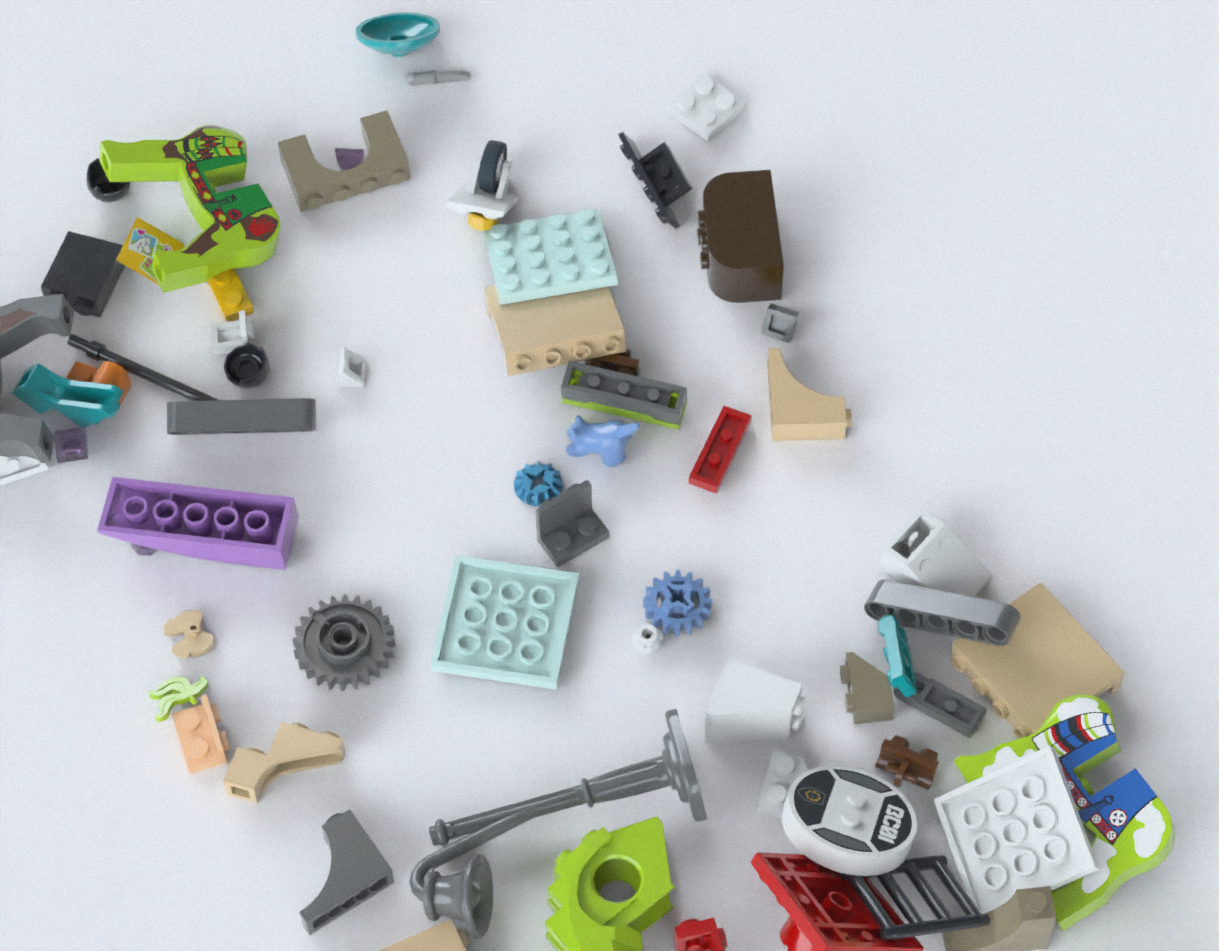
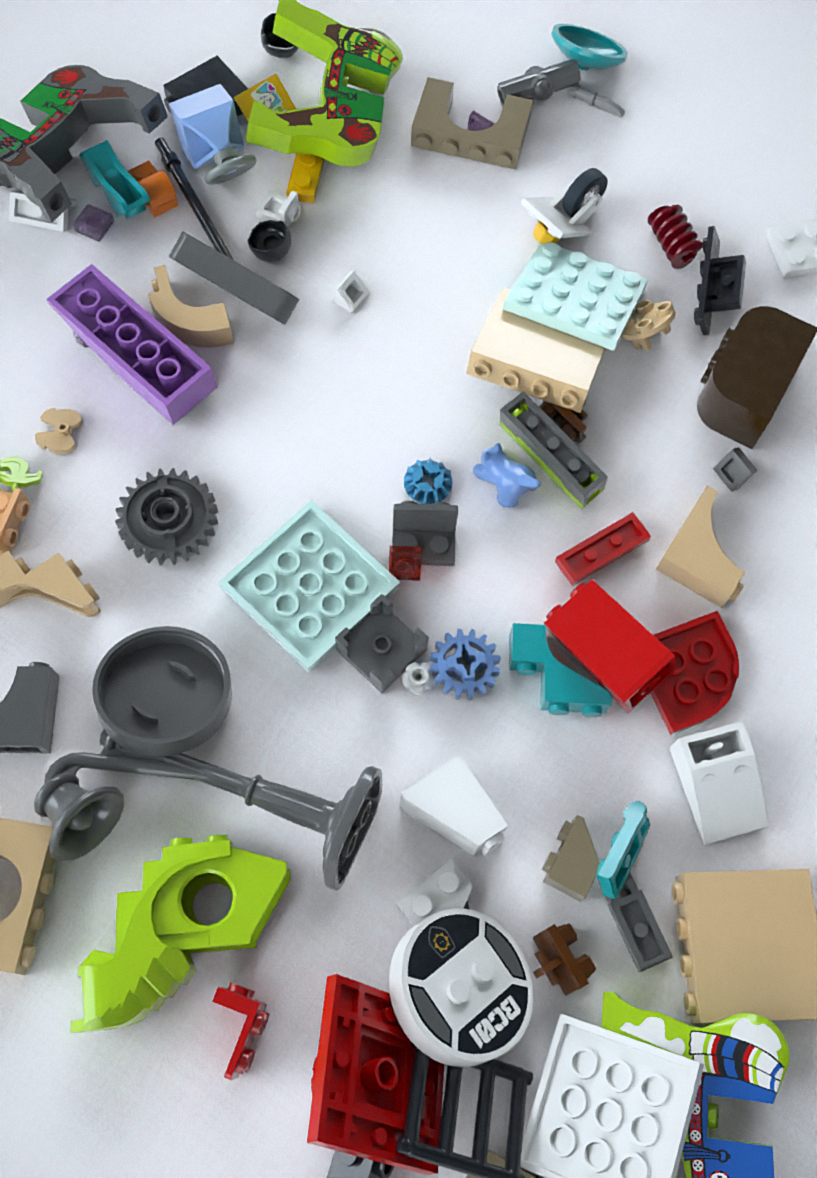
camera: 30 degrees right, 10 degrees up
(119, 301) = (211, 134): none -> light blue piece
(245, 473) = (191, 325): none -> tan arch
(377, 90) = (552, 80): none -> dark grey piece
(454, 769) = (162, 691): none -> dark grey piece
(571, 555) = (405, 562): none -> clear red plate
(593, 158) = (675, 235): none -> dark red piece
(600, 631) = (381, 645): none -> dark grey panel
(626, 243) = (648, 320): none -> tan plate
(763, 572) = (560, 686): none -> teal arch
(781, 514) = (610, 644): none -> red slope
(853, 499) = (703, 674): none -> red plate
(943, 612) = (696, 839): beam -> none

